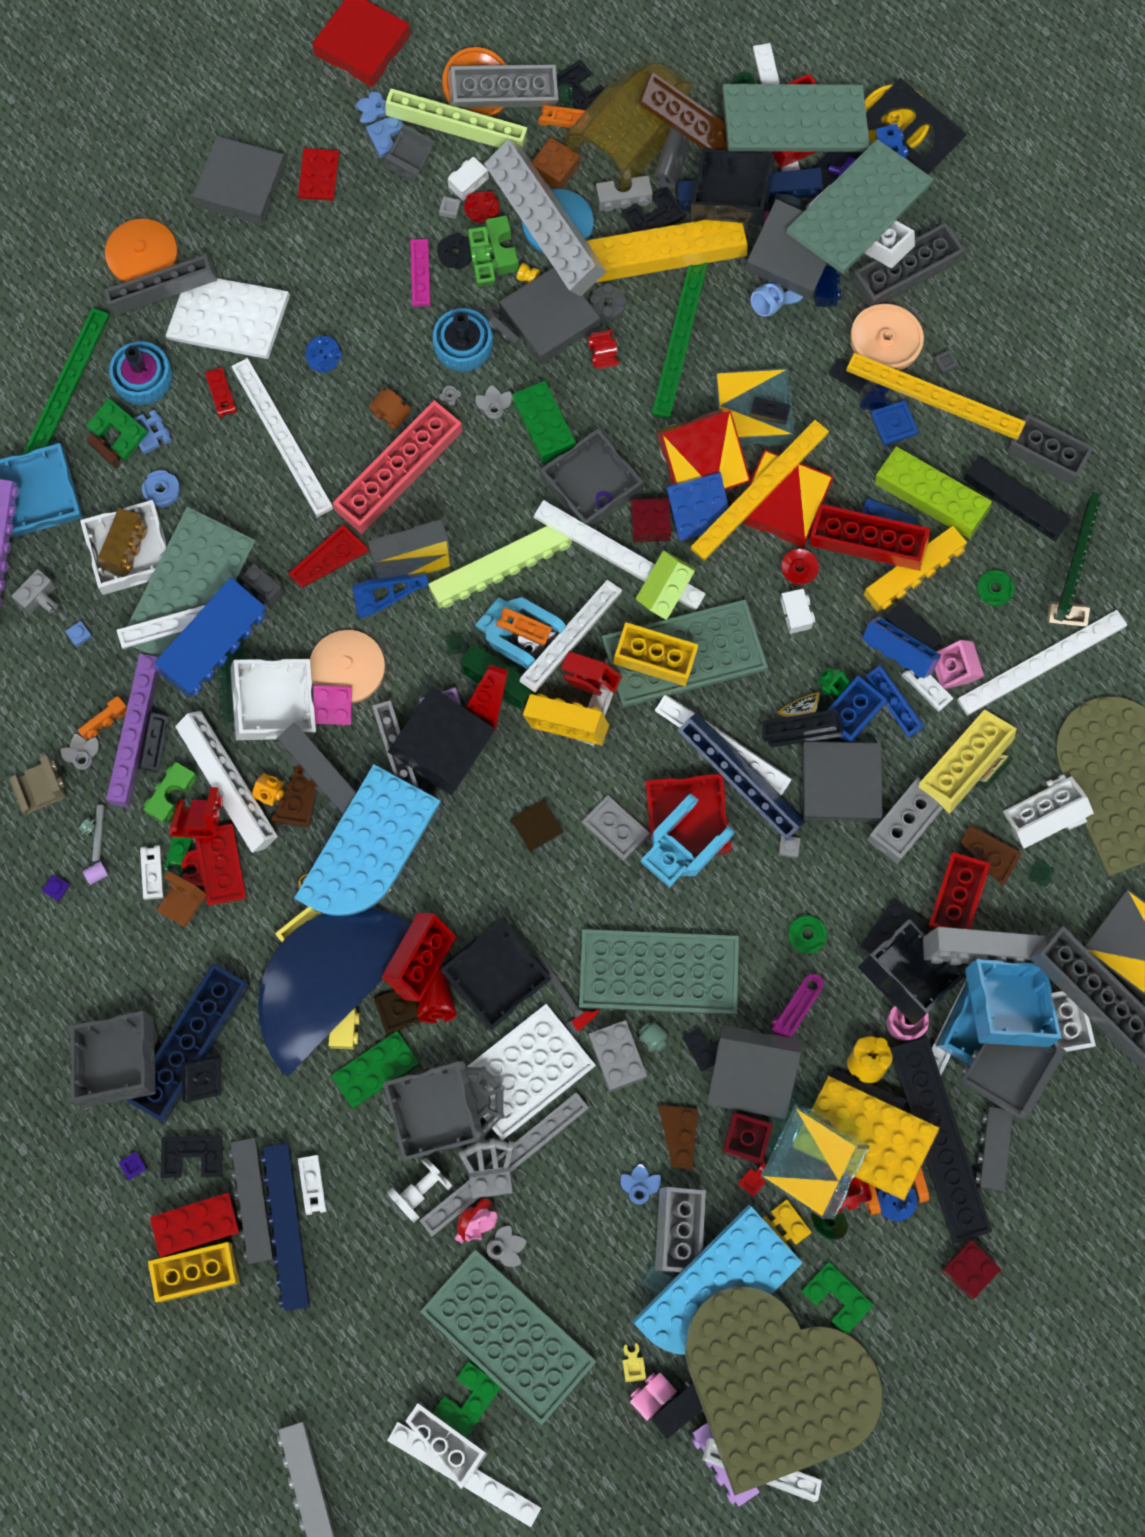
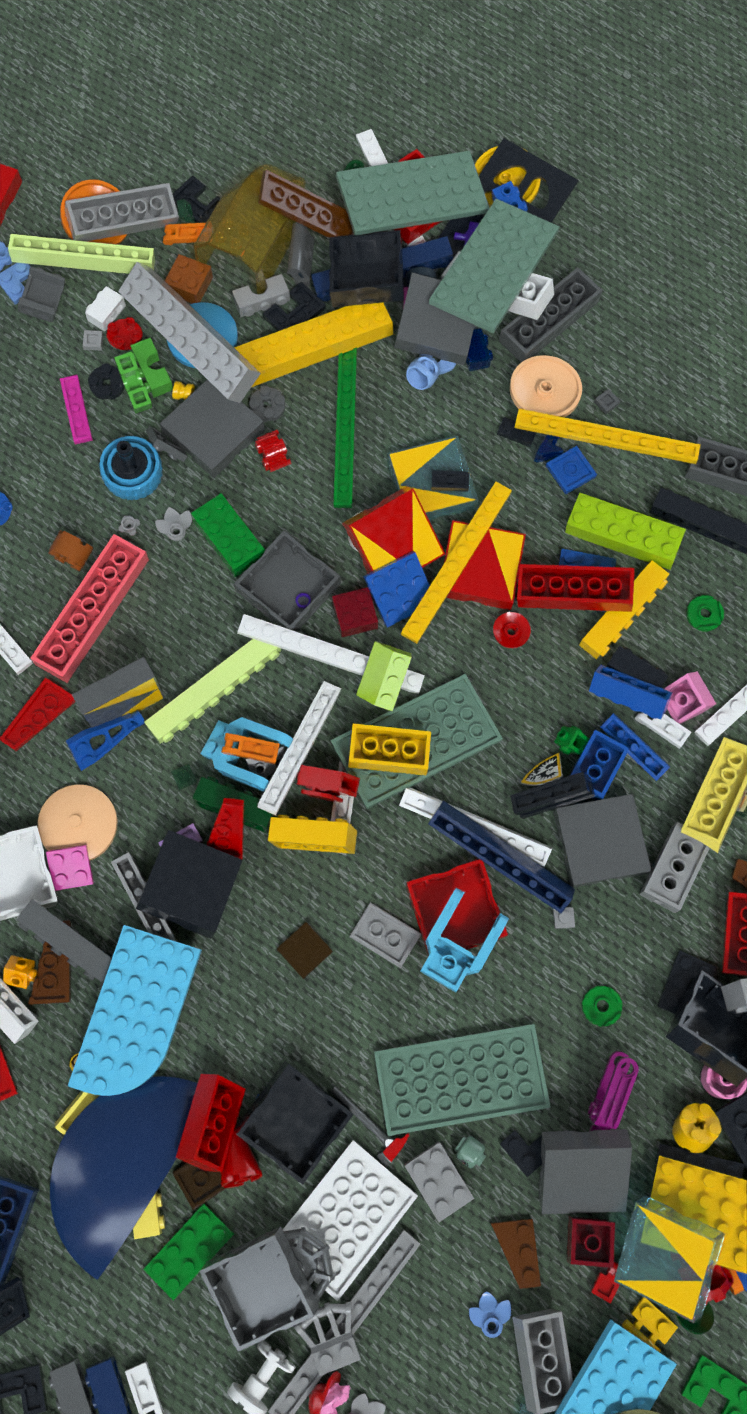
camera: 15 degrees left, 0 degrees up
(798, 614) = (518, 672): white piece -> none

